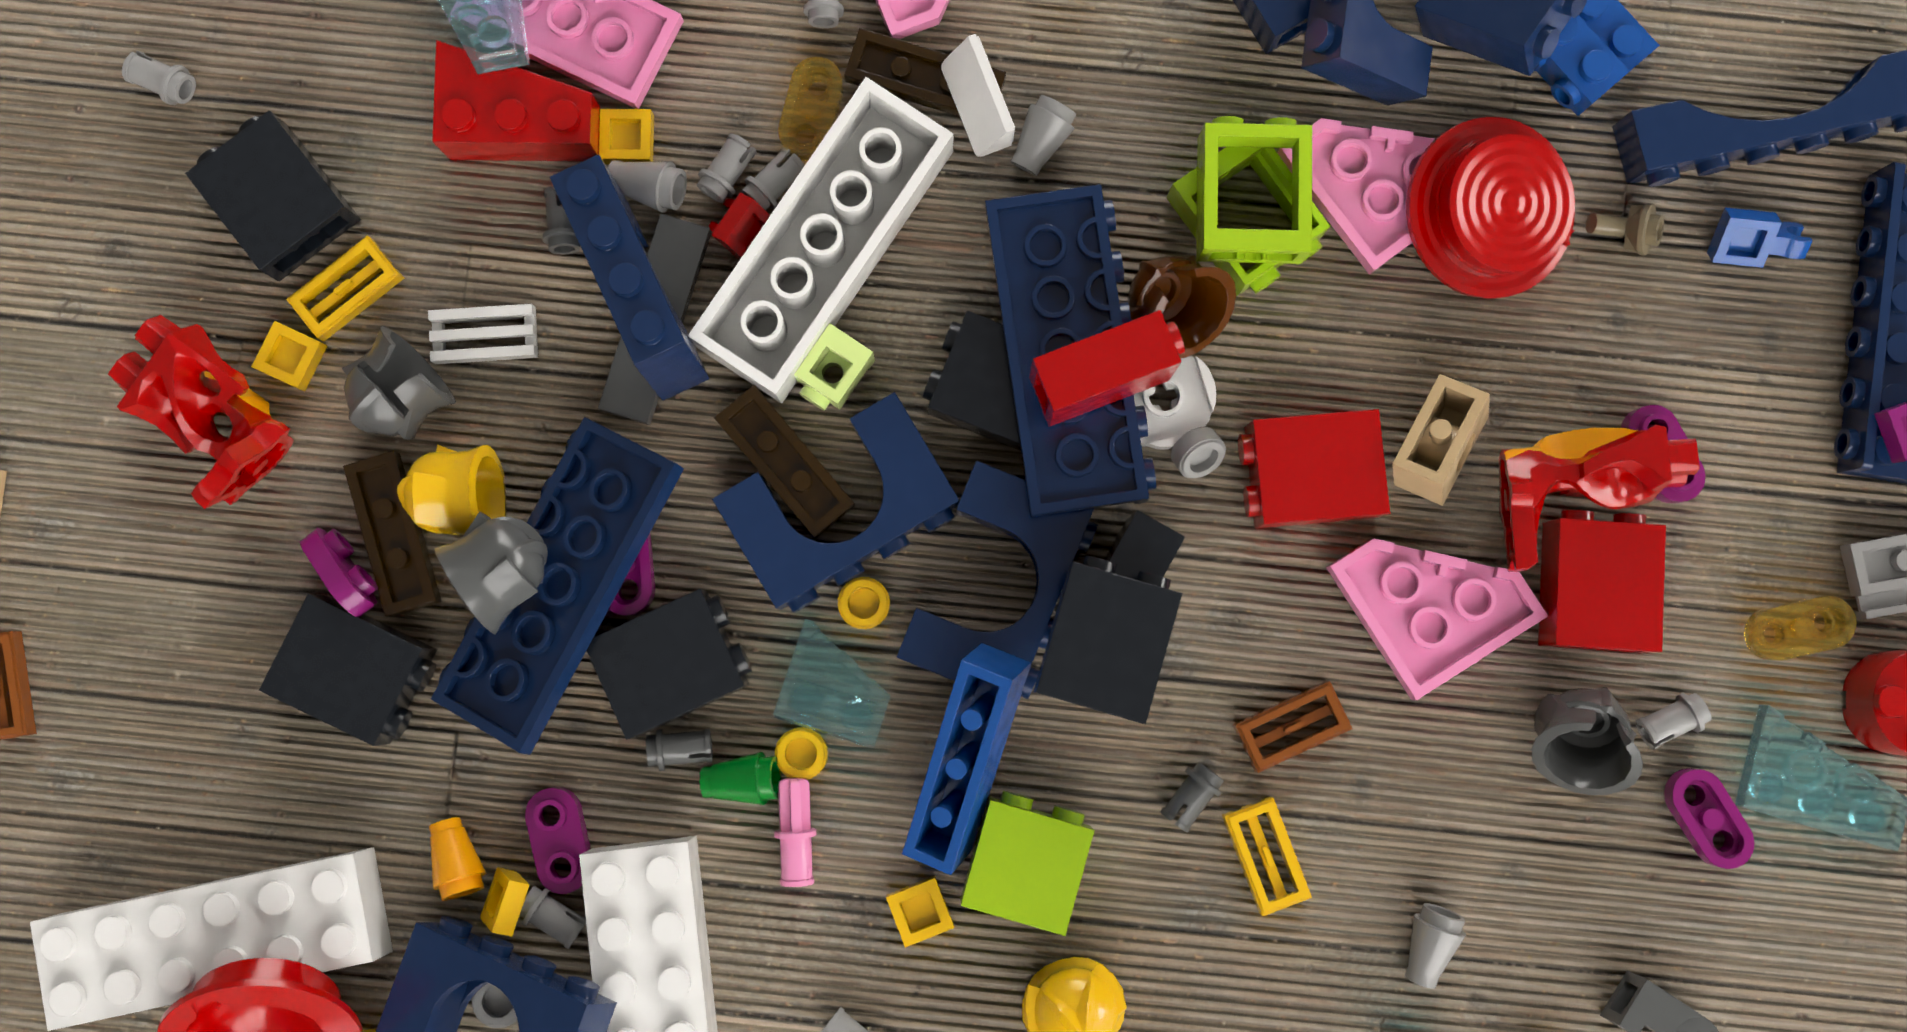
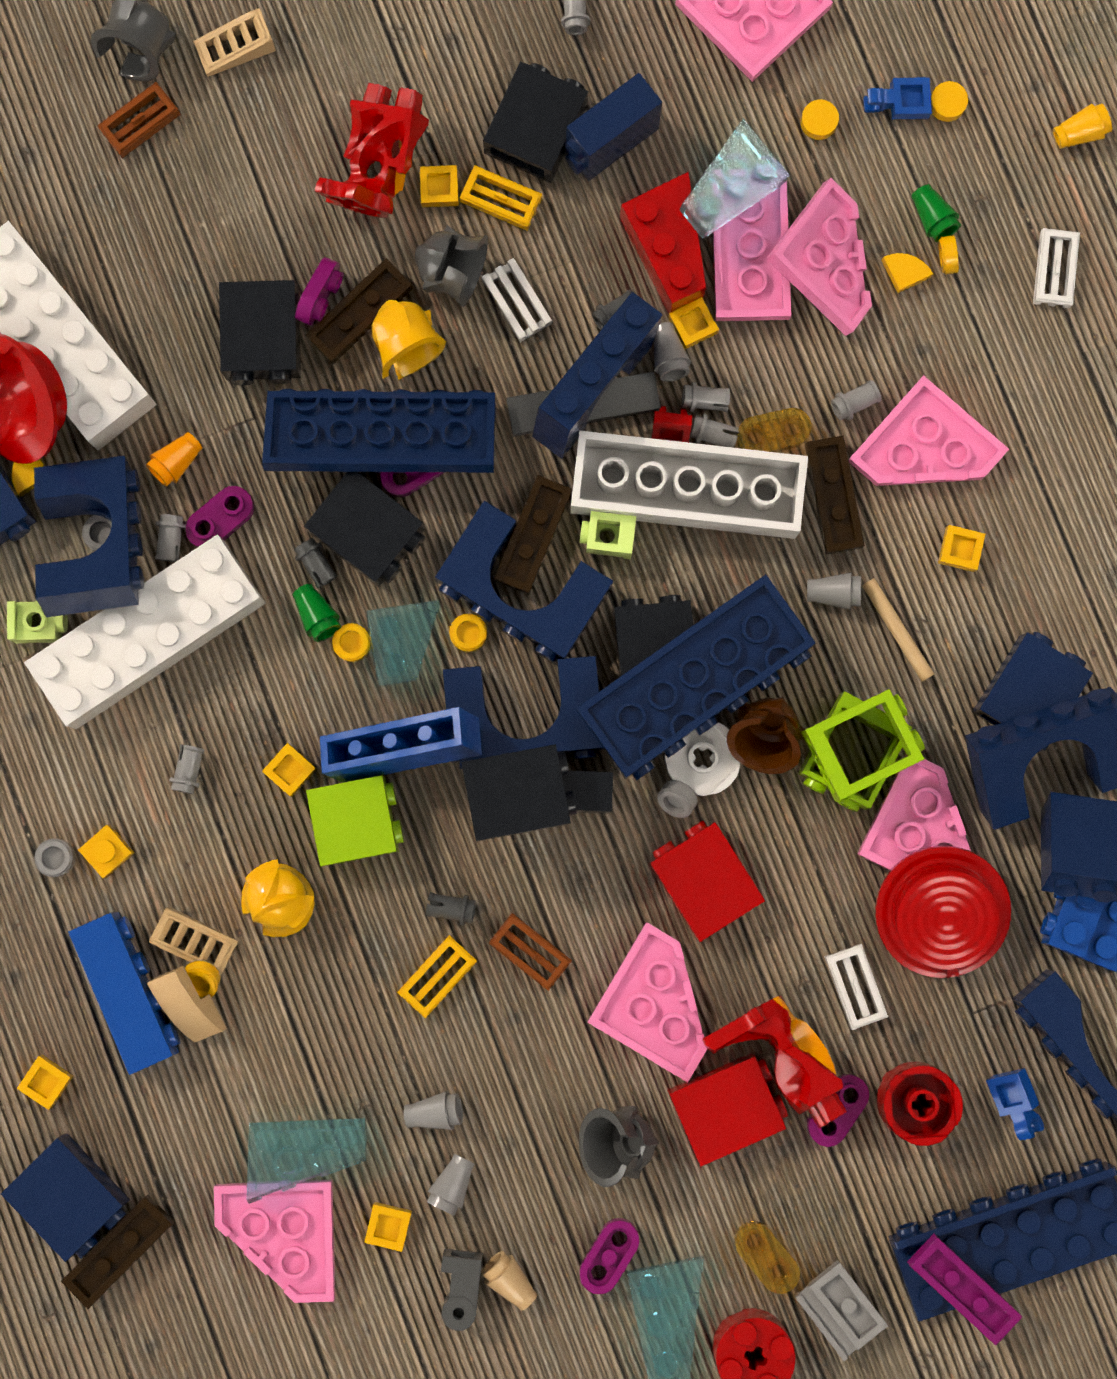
camera: 65 degrees right, 0 degrees up
(330, 102) = (612, 127): none -> dark blue brick
(494, 566) = (369, 387): dark grey helmet -> none
(504, 901) = (164, 503): yellow tile -> none
(795, 832) = (299, 664): bright pink axle -> none
(978, 97) = (834, 535): white slope -> none
(1106, 367) = (691, 703): red brick -> none
(1126, 87) = (898, 629): none -> tan bar
(1441, 439) = (767, 953): tan brick -> none
(1483, 352) = (845, 955): none -> white tile
(1533, 970) = (451, 1185): none -> light grey cone
(1639, 229) = (983, 1020): dark tan plate -> none
(1674, 720) = (662, 1202): light grey pin -> none
(1680, 957) = (507, 1279): none -> tan cone
(1708, 351) = (935, 1118): none -> red brick

